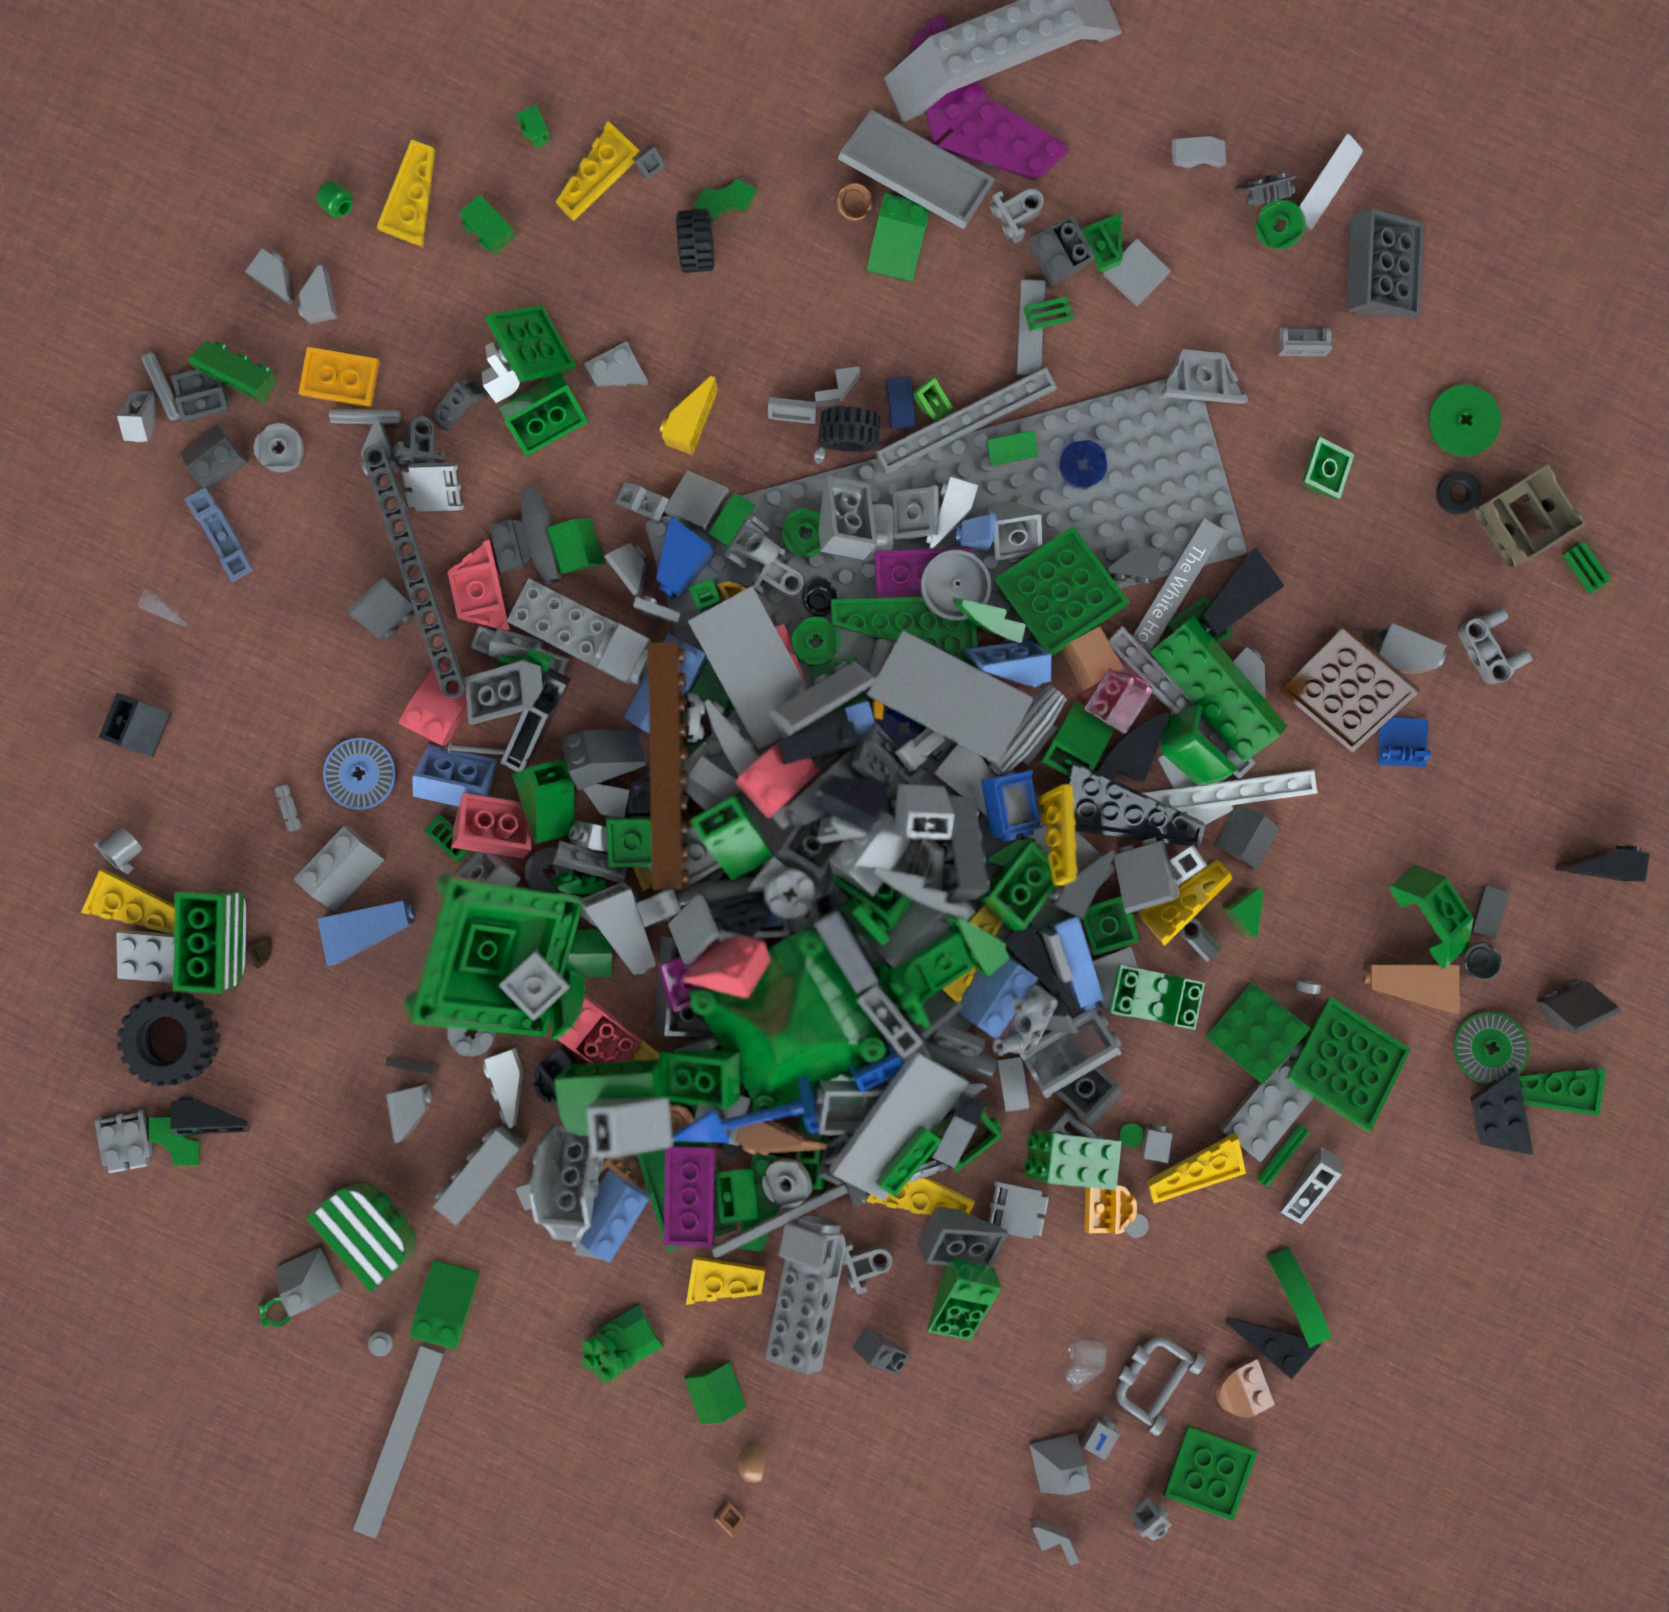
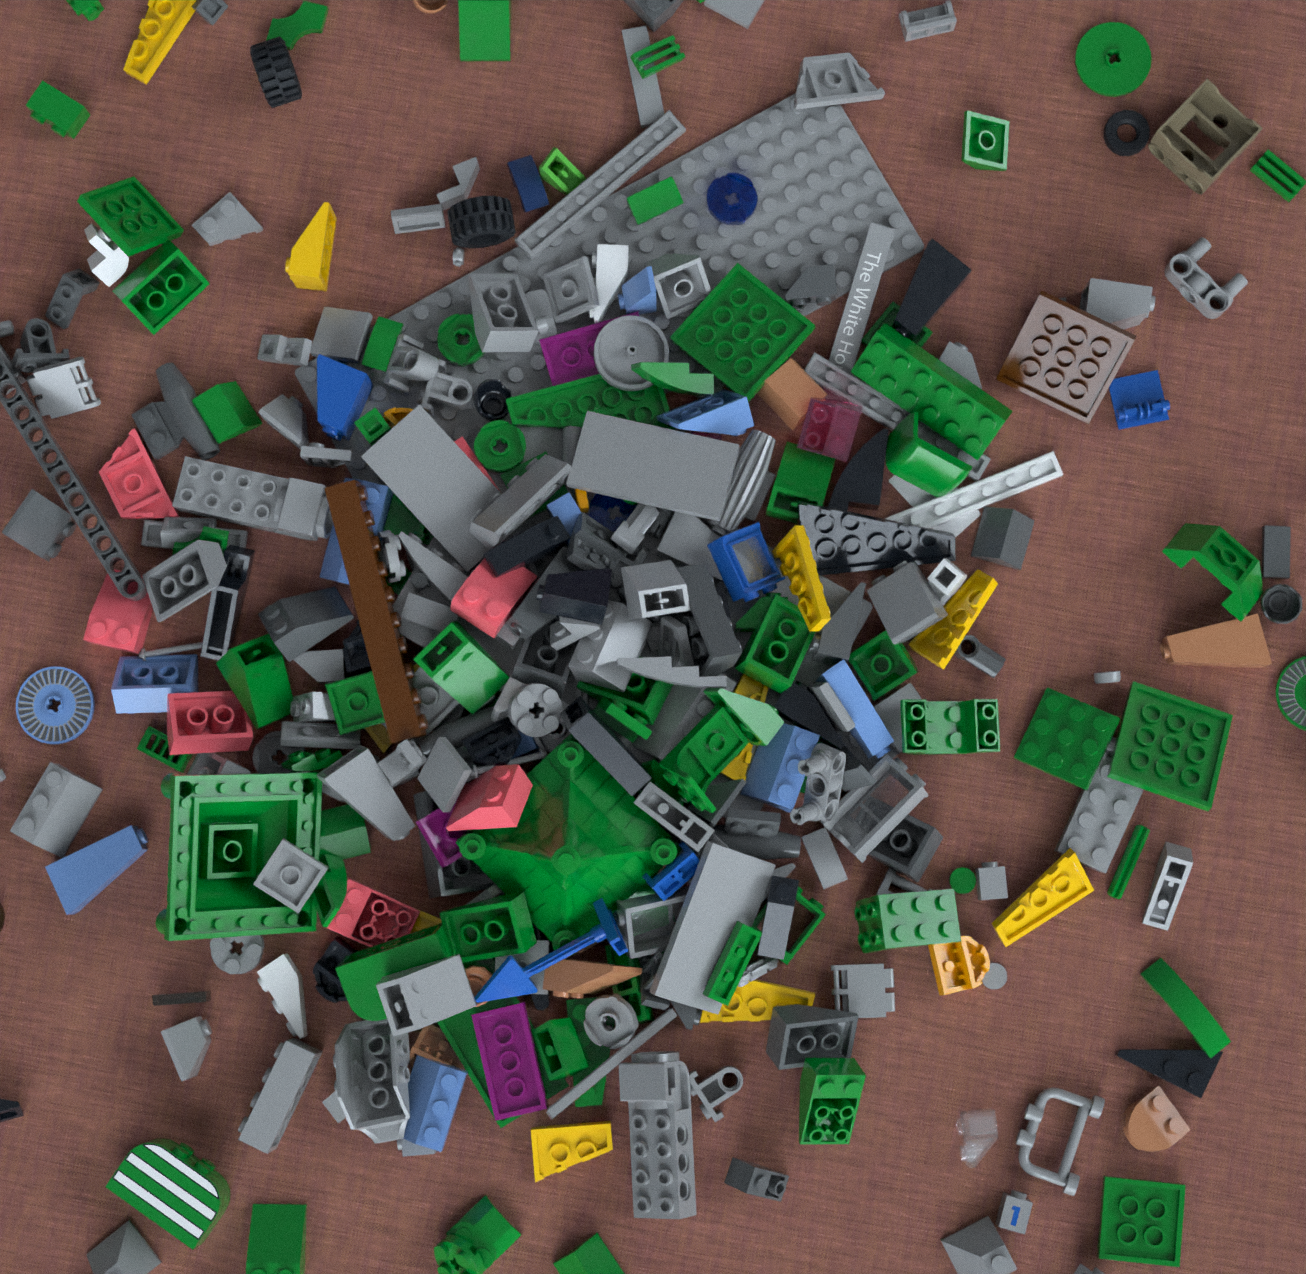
camera: 10 degrees left, 5 degrees down
(1246, 911) = (1020, 614): green slope -> none

